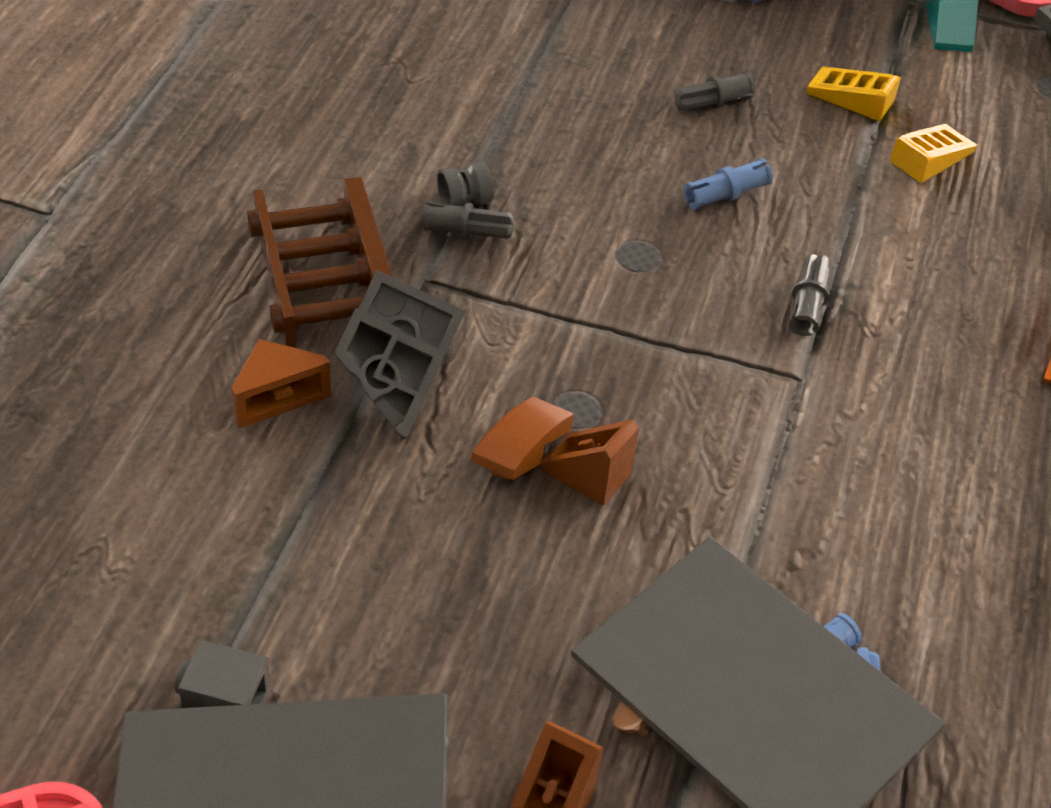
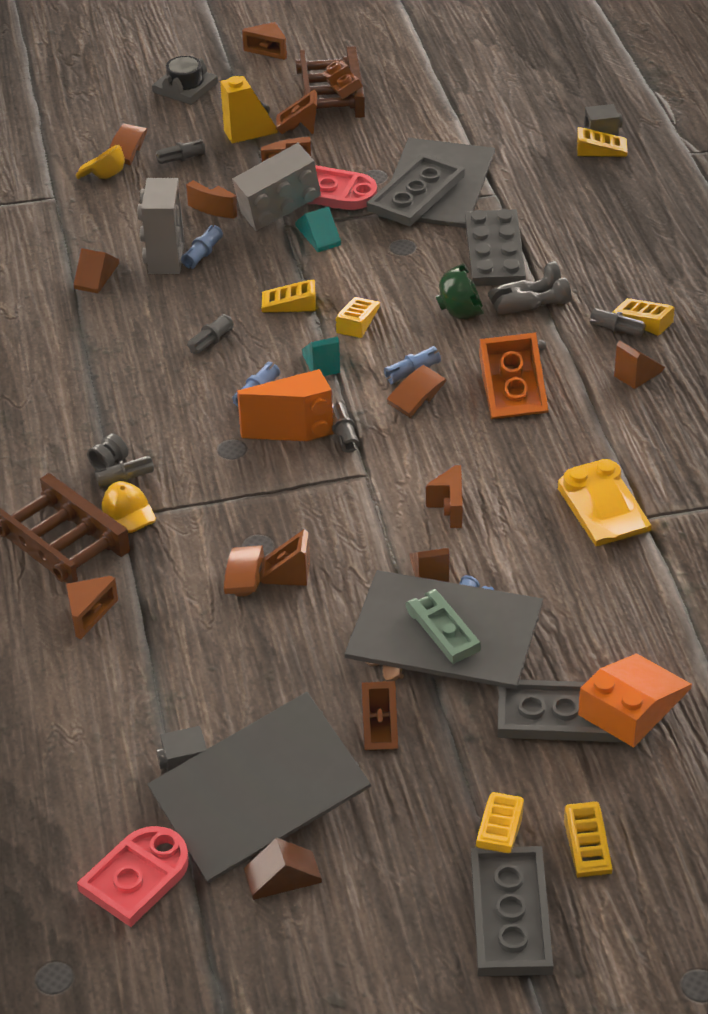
camera: 25 degrees left, 5 degrees down
(397, 346) = (144, 552): dark grey slope -> none
(440, 267) = (127, 506): none -> yellow cap
(741, 231) = (287, 408): none -> orange slope
(748, 692) = (444, 626): none -> sand green plate
(803, 570) = (431, 564): none -> dark orange slope
(845, 185) = (323, 356): none -> teal slope
(901, 464) = (447, 493): none -> dark orange slope
(950, 286) = (415, 389): none -> dark orange slope
(968, 250) = (411, 363): none -> medium blue pin

